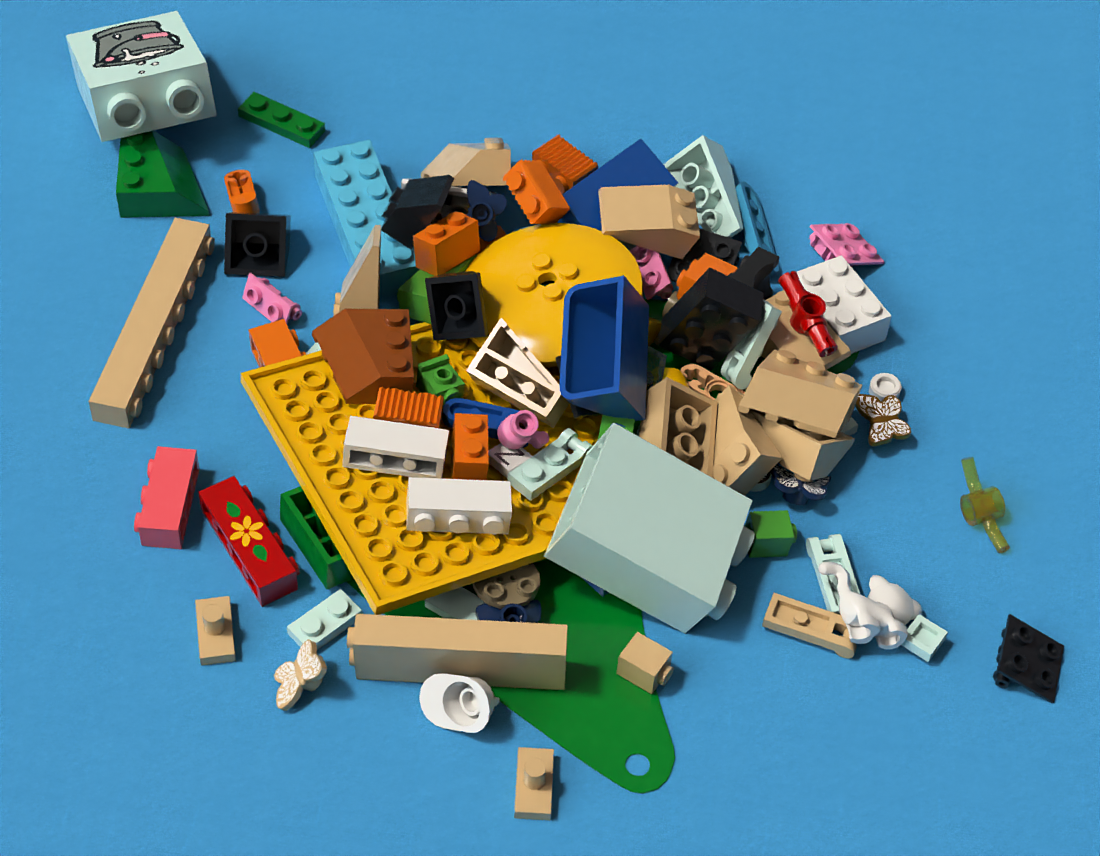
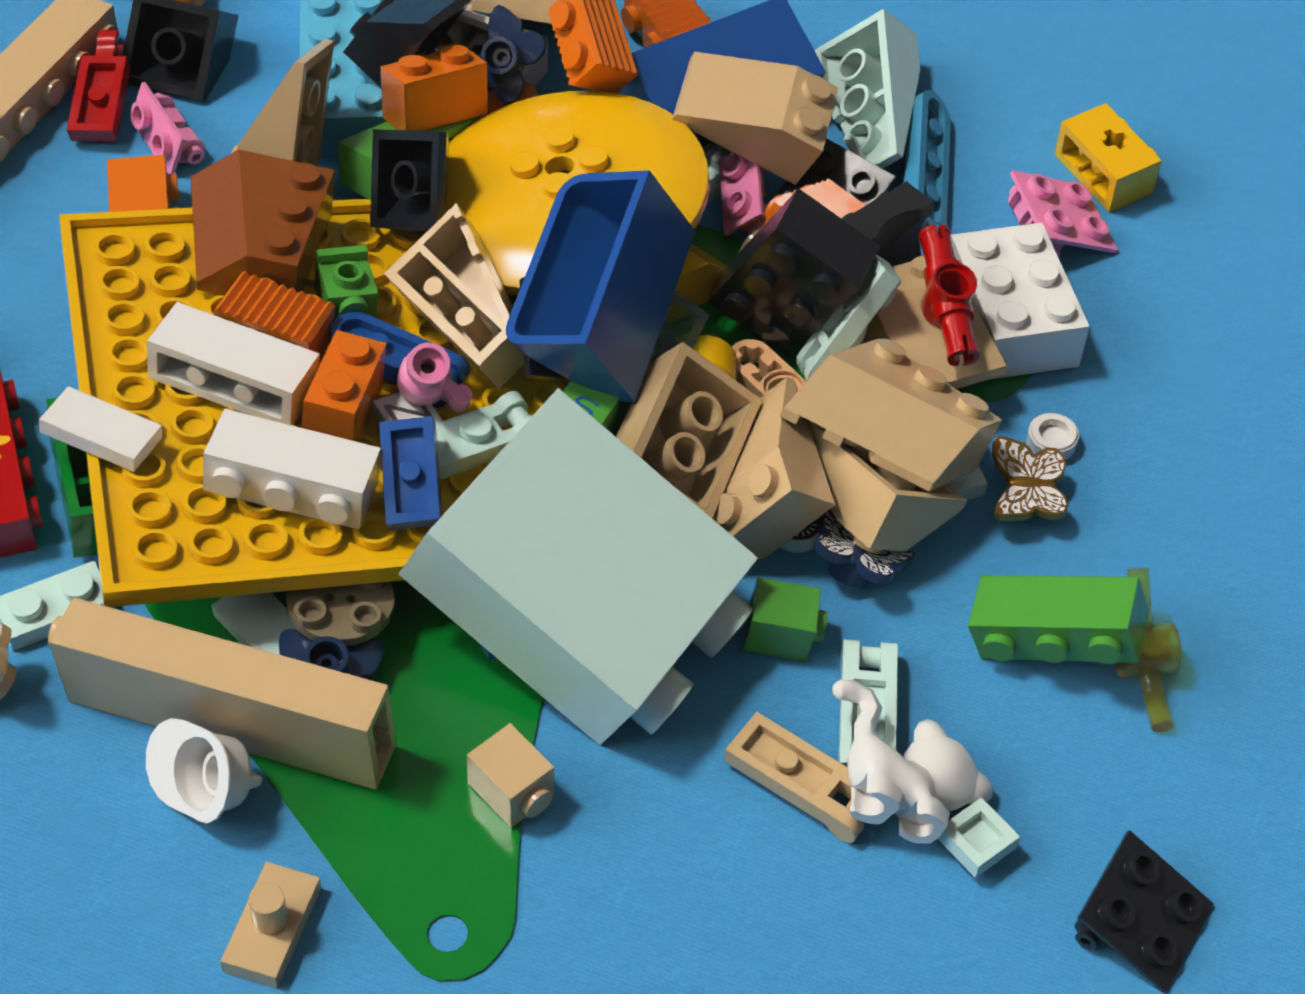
camera: 15 degrees right, 0 degrees up
(220, 284) = (100, 92): none -> red plate
(331, 505) = (100, 428): none -> white tile
(531, 493) = (410, 473): none -> blue plate
(861, 203) = (1107, 157): none -> yellow brick
(930, 498) = (1059, 618): none -> bright green brick

